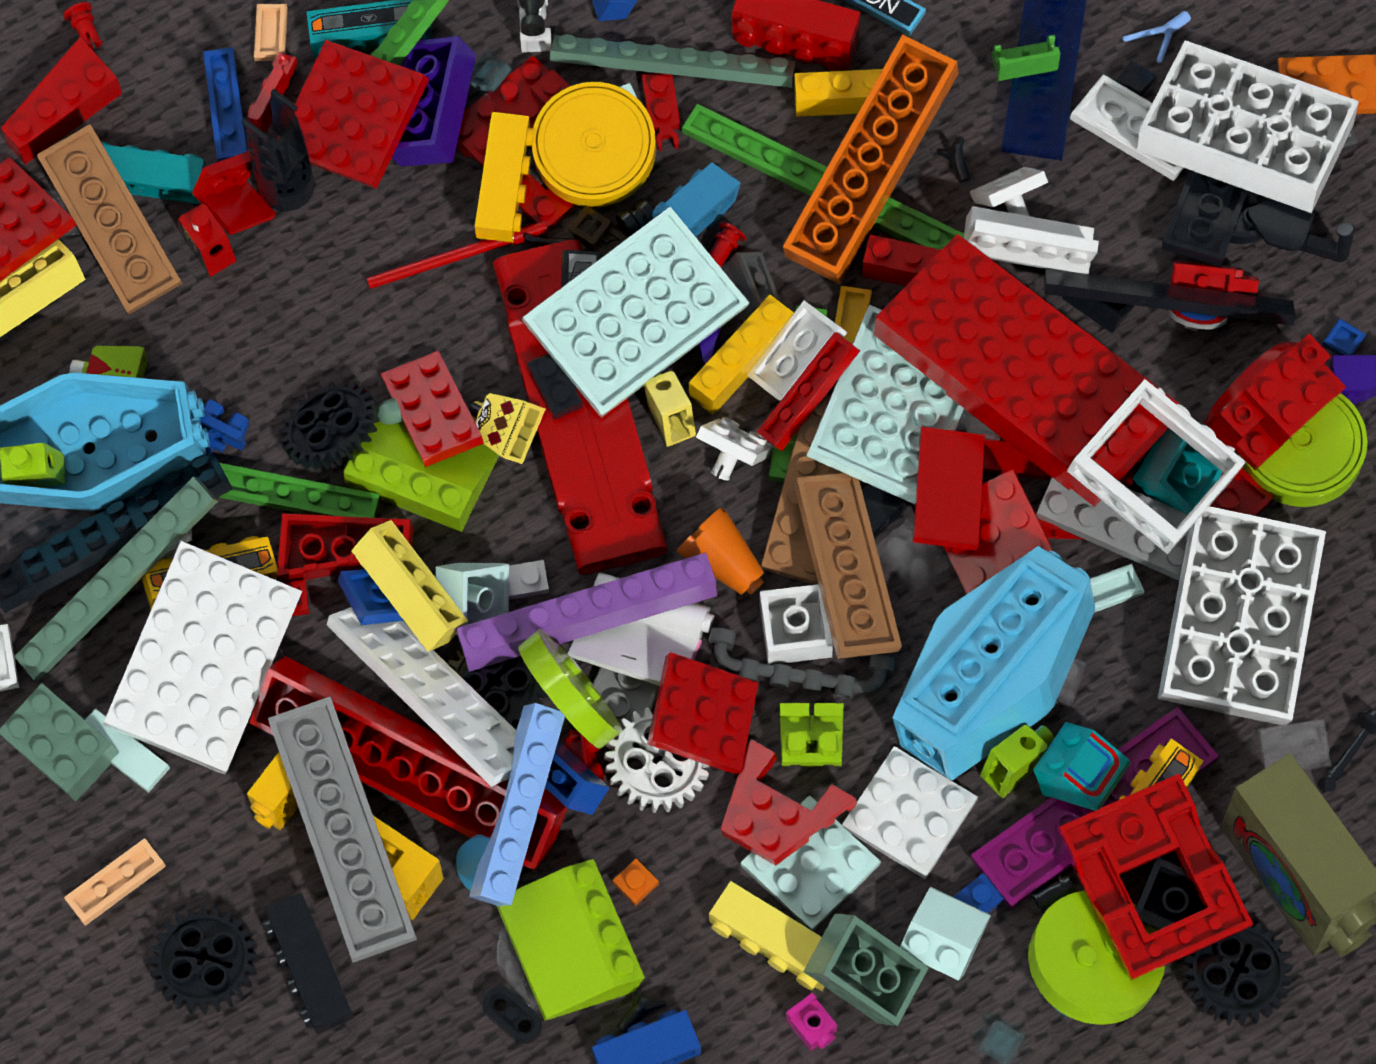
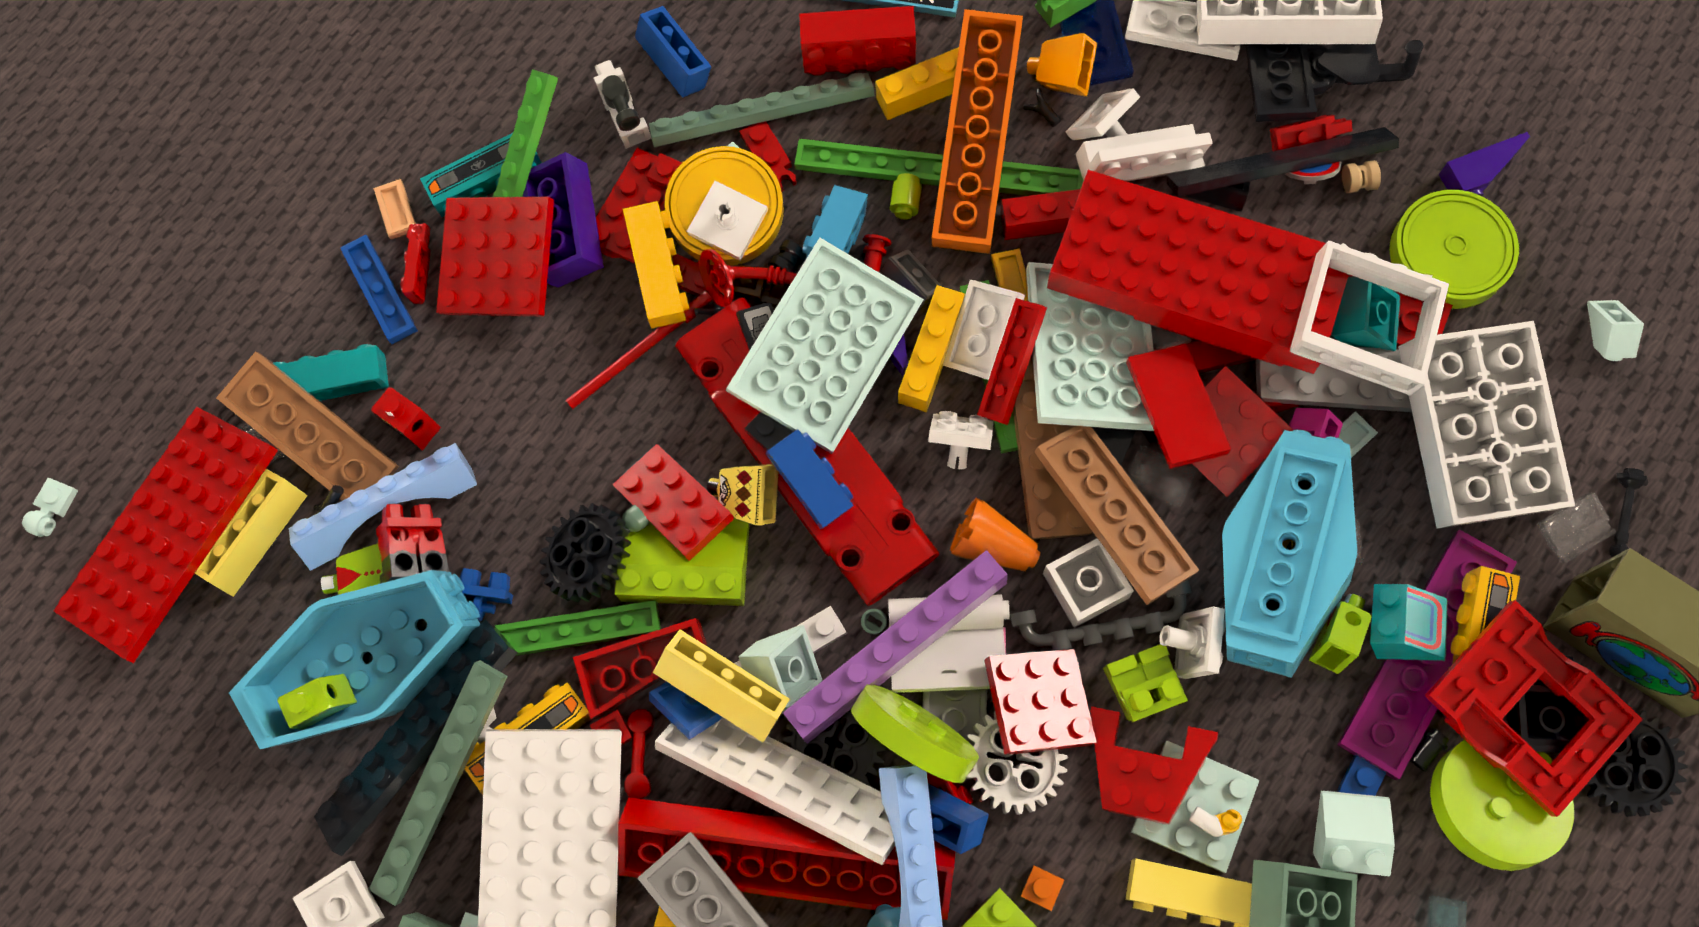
camera: 15 degrees left, 5 degrees up
(61, 102) = (225, 339): red wedge -> none
(83, 23) = (220, 258): red pin -> none
(105, 294) = (332, 498): none -> black bar
(169, 353) = (410, 543): none -> hips
(218, 304) = (325, 533): none -> light blue arch
(230, 196) = (412, 370): red bracket -> none
(281, 165) = (449, 325): black piece -> none
(321, 602) = (636, 783): none -> red bar
(490, 75) = (606, 178): clear light blue tile -> none
(568, 211) = (726, 274): none -> red dish
(569, 430) = (810, 478): none -> blue brick
(583, 581) = (871, 627): none -> sand green hinge
(589, 159) = (727, 220): none -> white tile
(667, 397) = (889, 420): light yellow torso -> none
(780, 198) = (906, 196): none -> lime brick
(820, 881) = (1218, 824): none -> arm
(872, 713) = (1197, 642): none -> white plate
(909, 812) = (1264, 721): white plate -> none
(994, 123) = (1065, 64): none -> light orange torso
(1085, 556) = (1317, 422): none -> dark pink brick
(1251, 341) = (1361, 176): none -> tan wheel
(1280, 392) = (1429, 215): red piece -> none
(1343, 338) = (1441, 145): blue tile -> none

